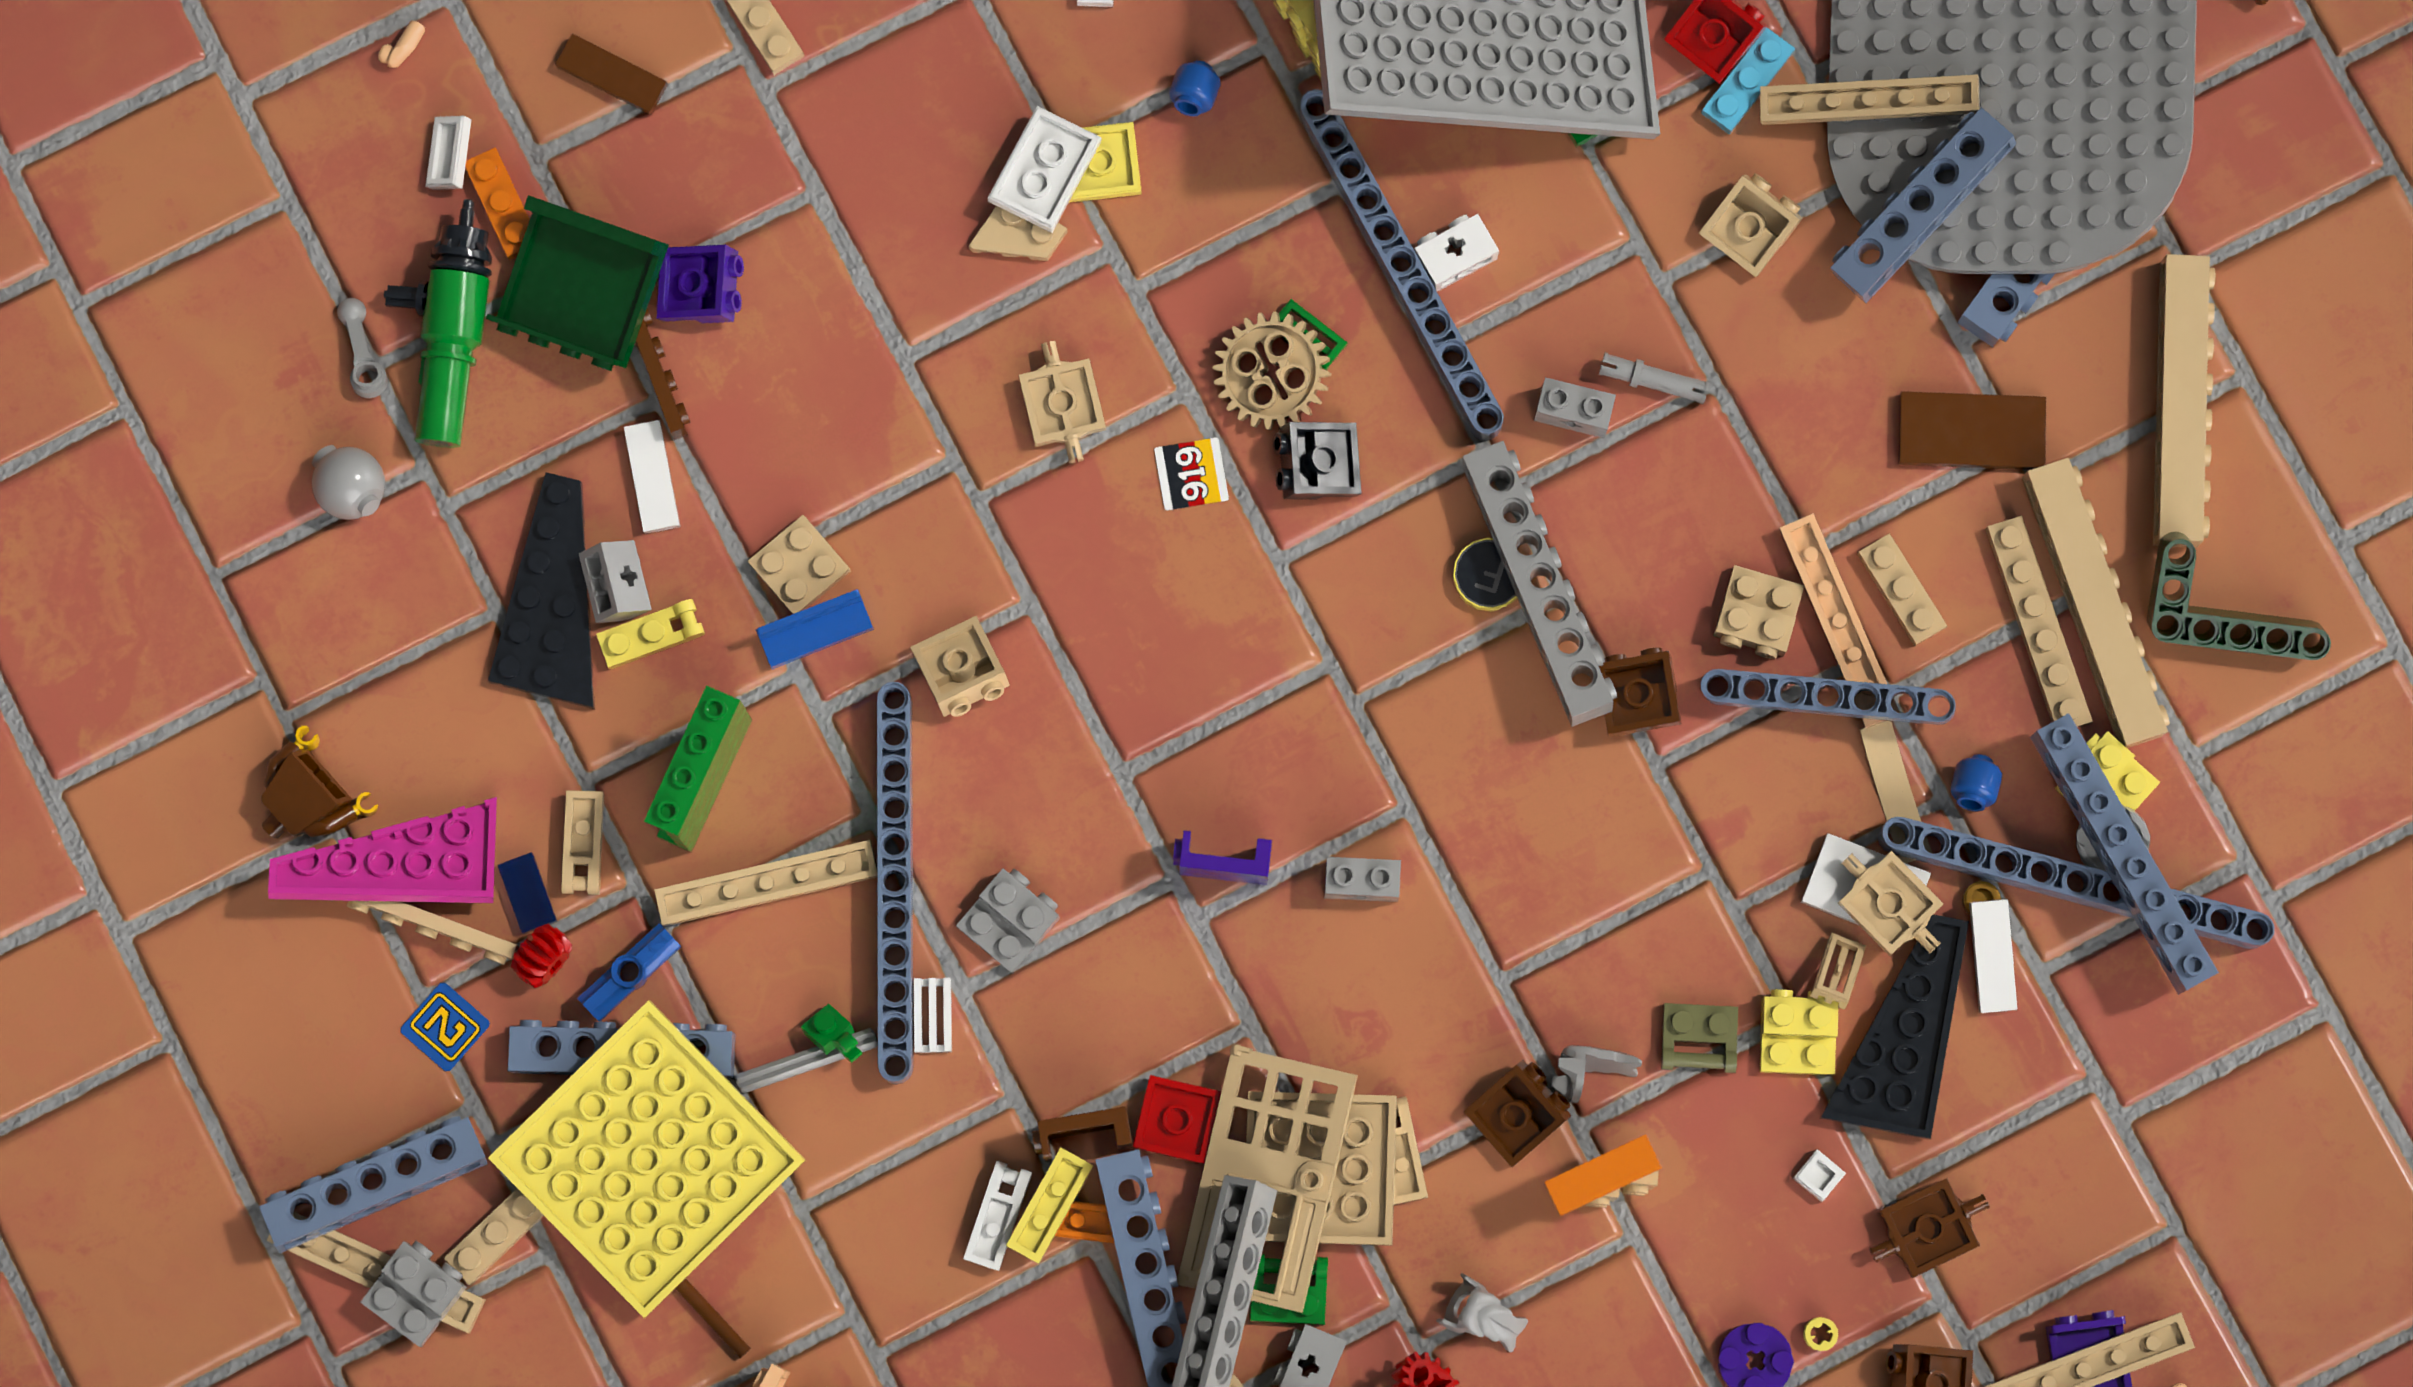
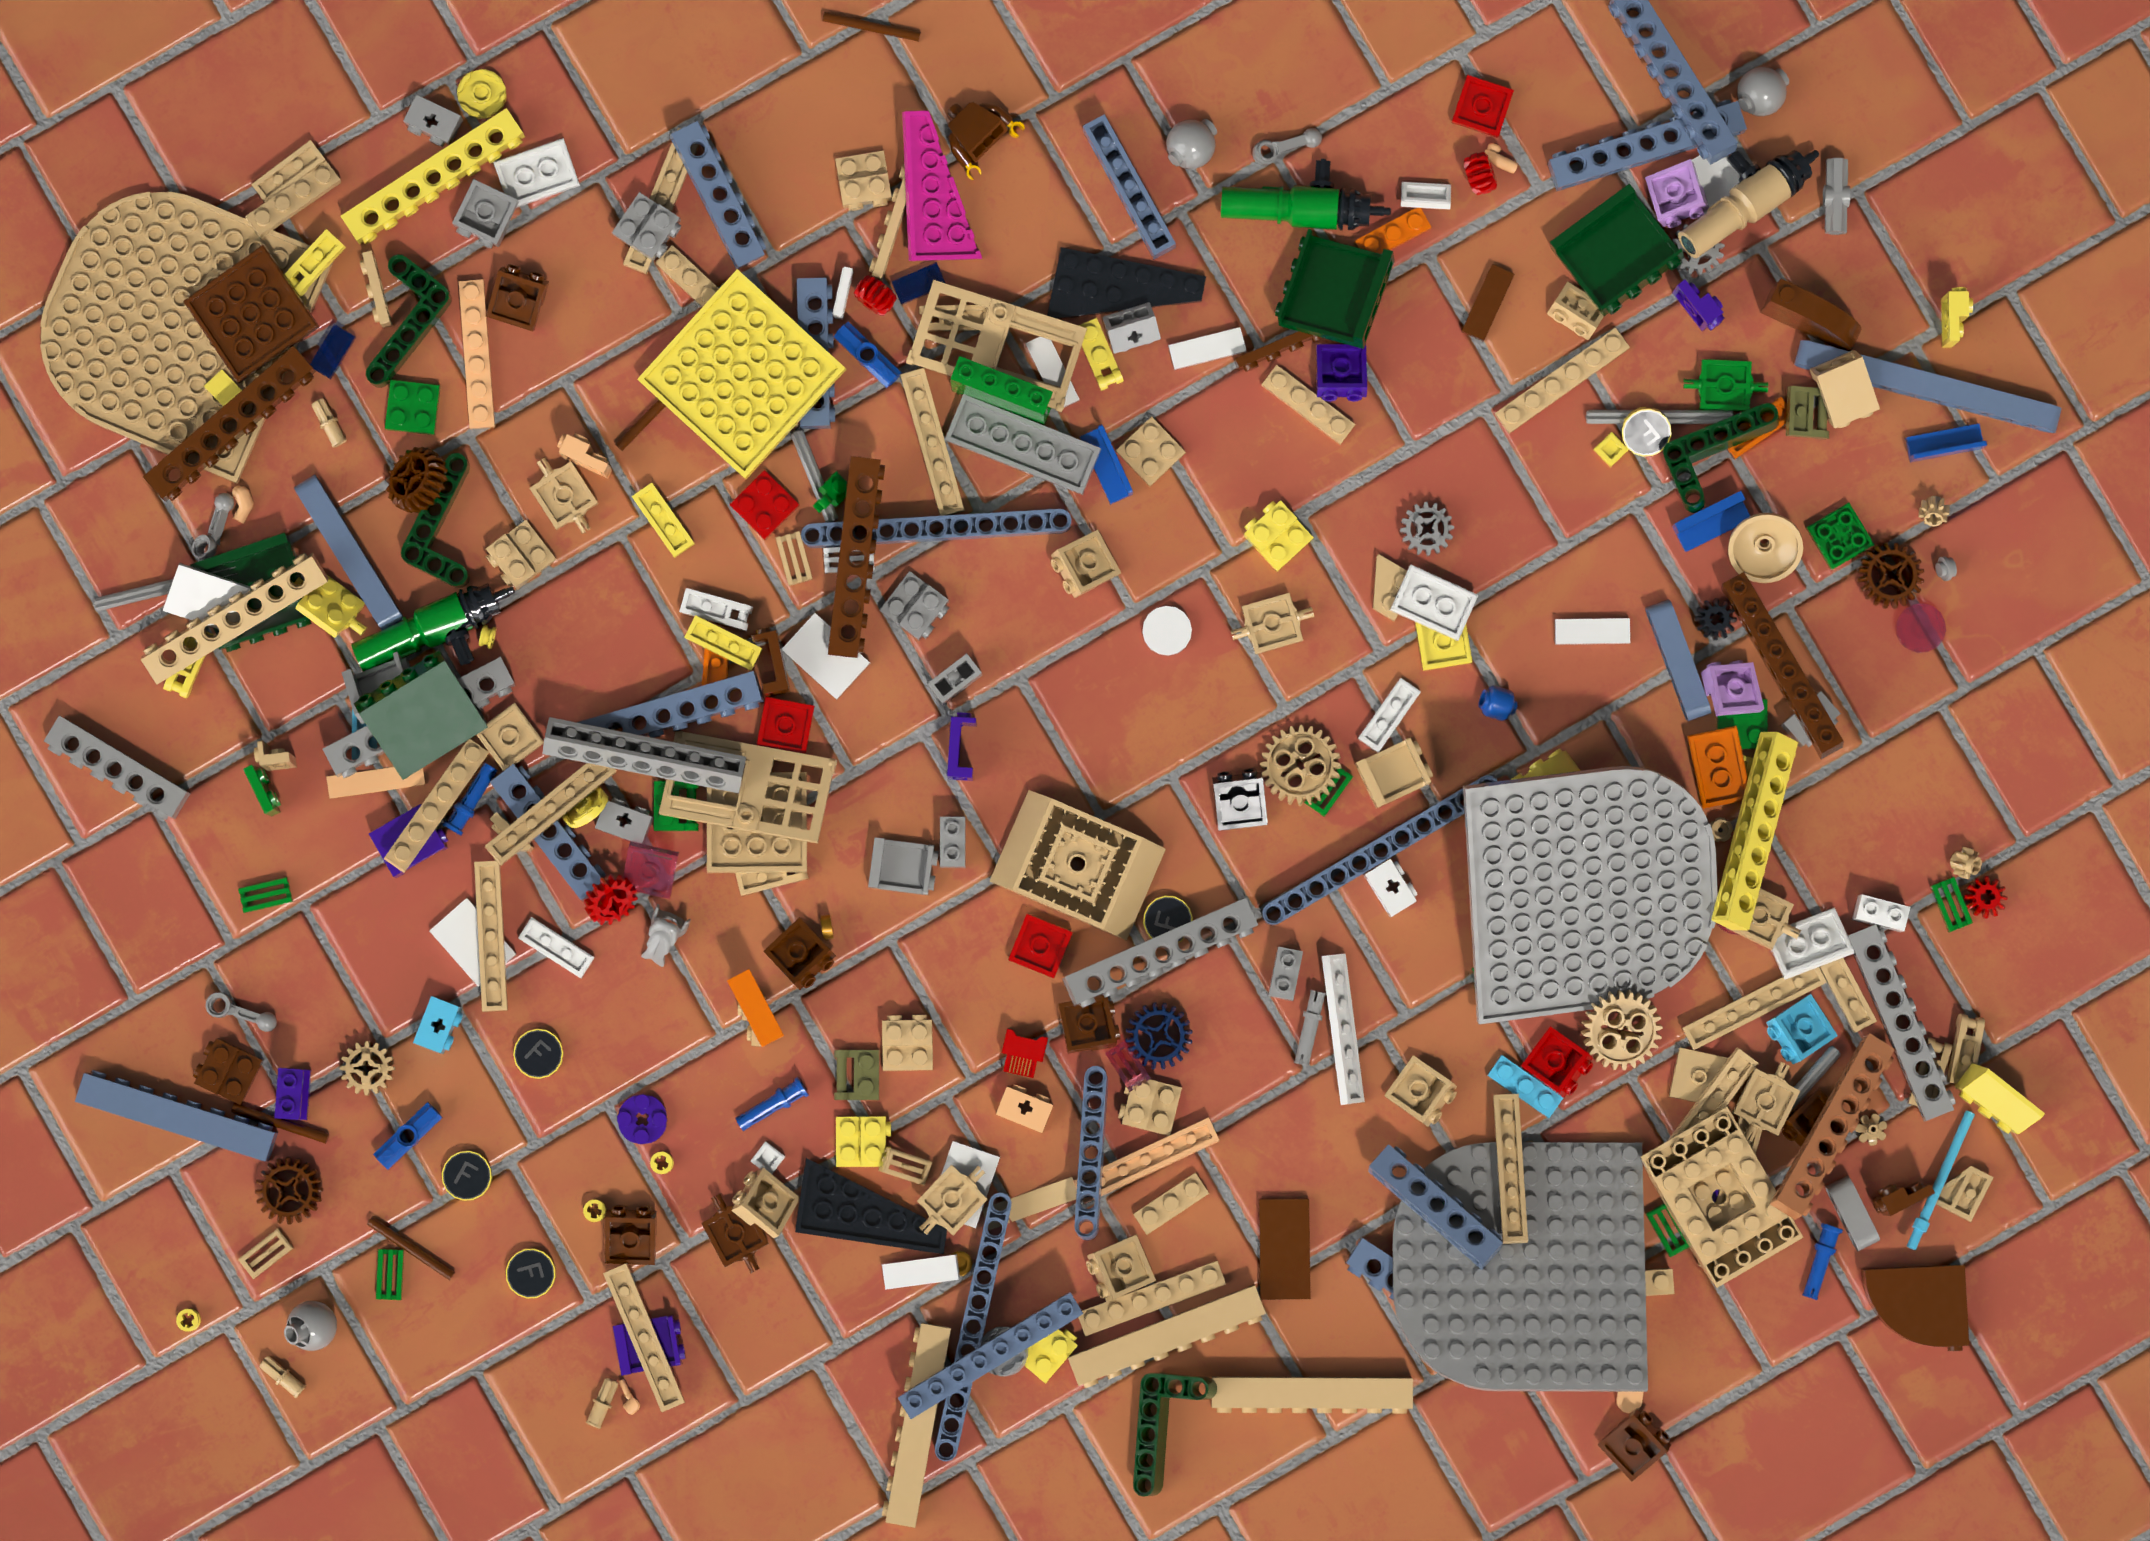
camera: 85 degrees right, 5 degrees up
(136, 946) = (871, 26): none -> reddish brown bar
(323, 65) = (1482, 106): none -> red plate
(367, 967) = (863, 180): none -> tan plate
(405, 575) = (1129, 187): none -> sand blue brick
(422, 71) = (1480, 173): none -> red gear
(445, 1026) = (827, 235): sticker -> none
(534, 1004) = (842, 293): none -> white tile
(610, 784) = (993, 335): none -> tan door
(666, 703) = (1050, 366): none -> white tile
(744, 336) = (1308, 404): none -> tan plate
(777, 749) = (1023, 444): none -> light grey plate
(800, 987) = (838, 643): none -> reddish brown brick
(844, 1137) = (764, 505): none -> red plate
(859, 1289) = (663, 520): none -> light yellow plate
(897, 1103) = (788, 538): none -> tan tile
(932, 389) = (1277, 535): none -> light yellow plate
(947, 164) = (1435, 537): none -> light grey gear
(1064, 555) = (1167, 630): none -> white tile
(1076, 1056) = (810, 652): none -> white tile
(1121, 864) = (954, 679): none -> light grey brick
(1191, 473) = (1228, 714): sticker -> none
(1204, 244) = (1389, 715): none -> white tile
(1287, 240) = (1394, 772): none -> tan panel
(1383, 1329) = (651, 869): none -> clear pink tile
(1394, 751) = (1114, 874): none -> tan slope
(1394, 955) = (902, 866): none -> light grey panel
(1479, 1071) = (827, 928): none -> pearl gold tile
(1520, 759) = (1040, 946): none -> red plate
(1581, 1059) = (837, 991): light grey hair -> none
(1643, 586) = (1169, 1016): none -> dark blue gear
(1656, 961) = (907, 1043): none -> tan plate
(1657, 330) = (1343, 1029): none -> white plate
(1677, 792) = (1022, 1053): none -> red piece
(1724, 625) = (1136, 1078): none -> clear pink tile
(1731, 1149) = (781, 1099): none -> blue pin
(1774, 778) = (1009, 1108): none -> light nougat brick
(1886, 1179) = (765, 1202): none -> tan plate
(1976, 783) = (1038, 1257): blue head -> none
(1996, 665) = (1120, 1268): none -> tan plate
(2241, 975) = (917, 1432): none -> tan brick

